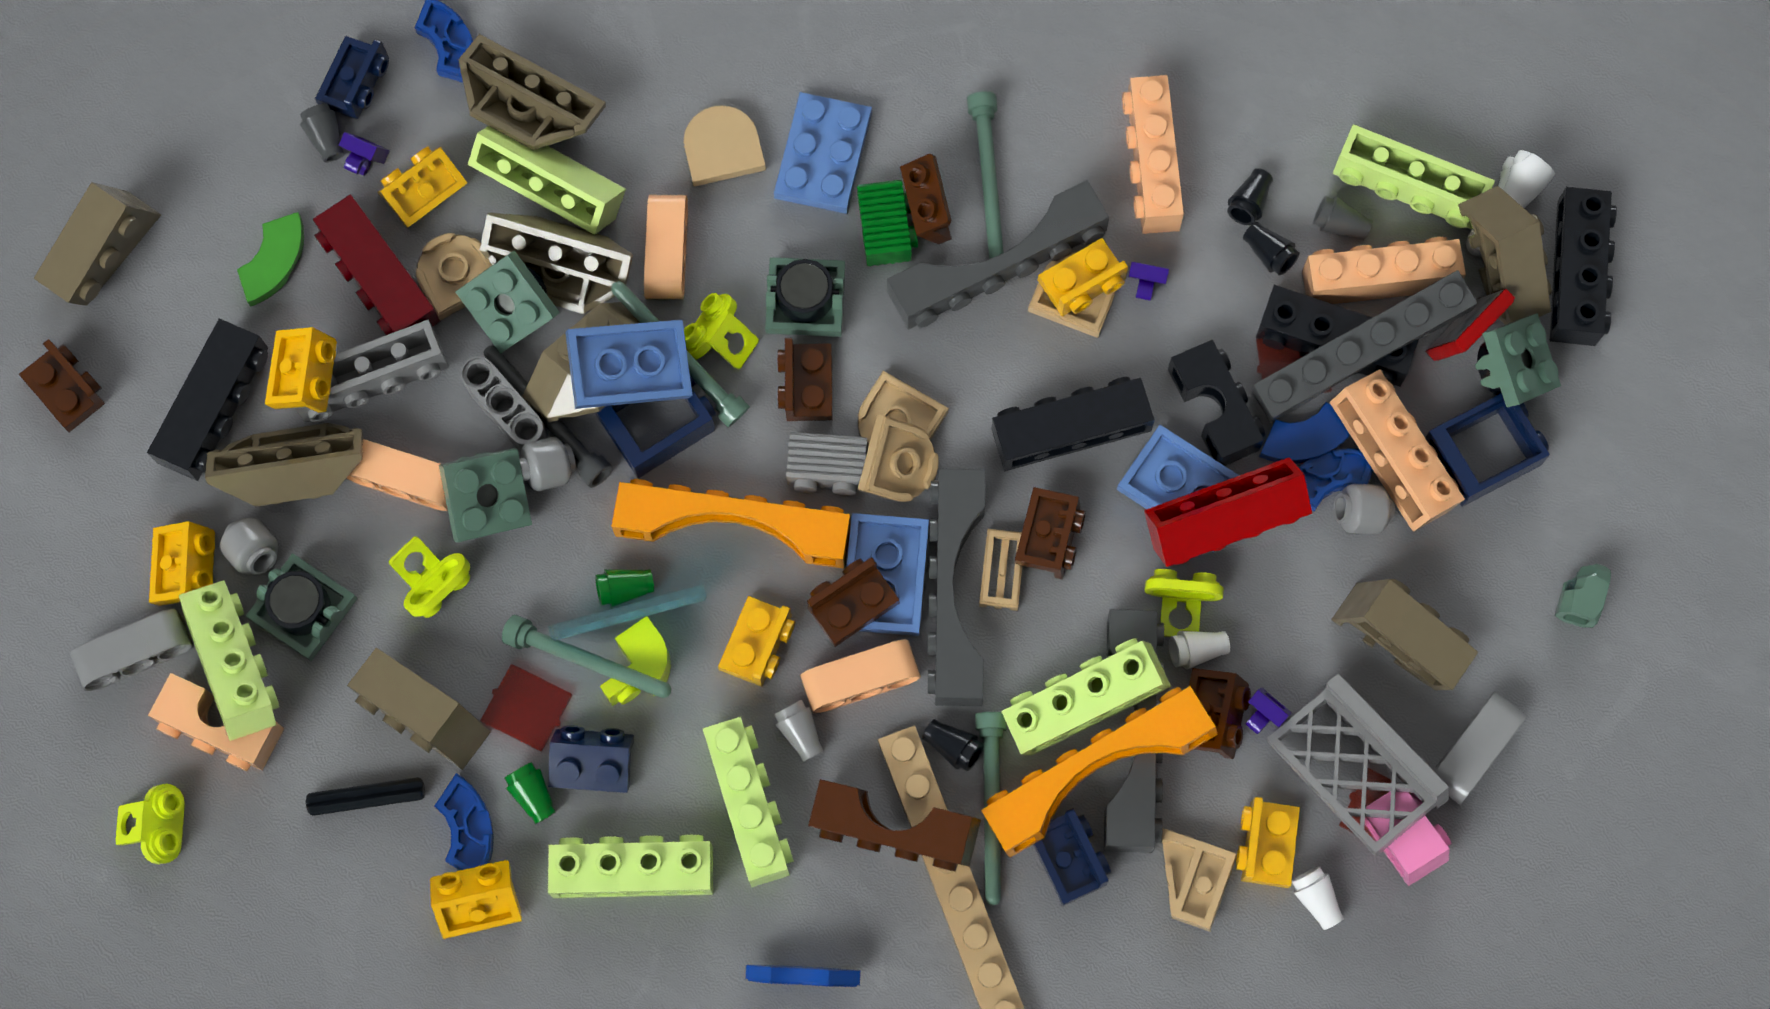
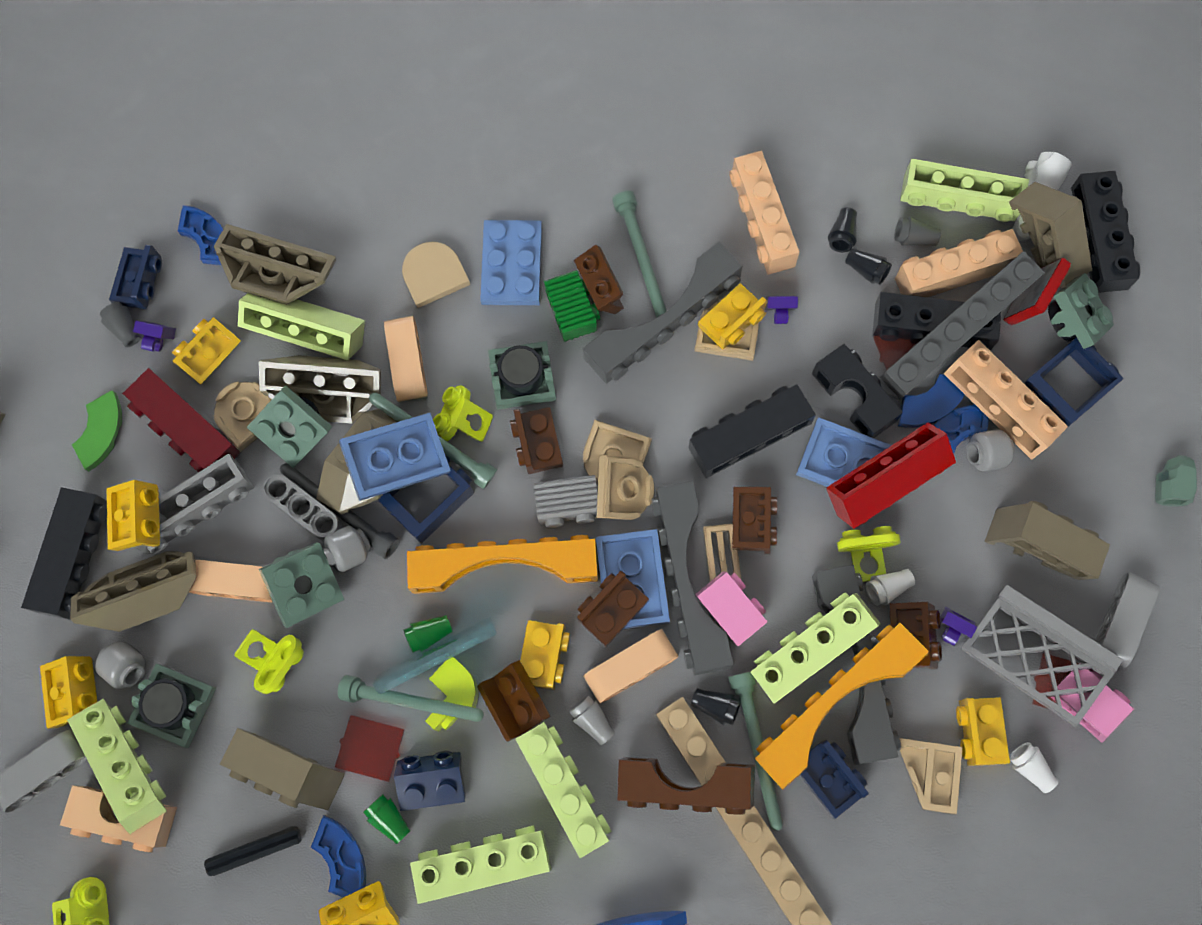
camera: 10 degrees left, 0 degrees up
(709, 686) = (513, 701): none -> reddish brown bracket
(997, 631) = (731, 607): none -> bright pink brick

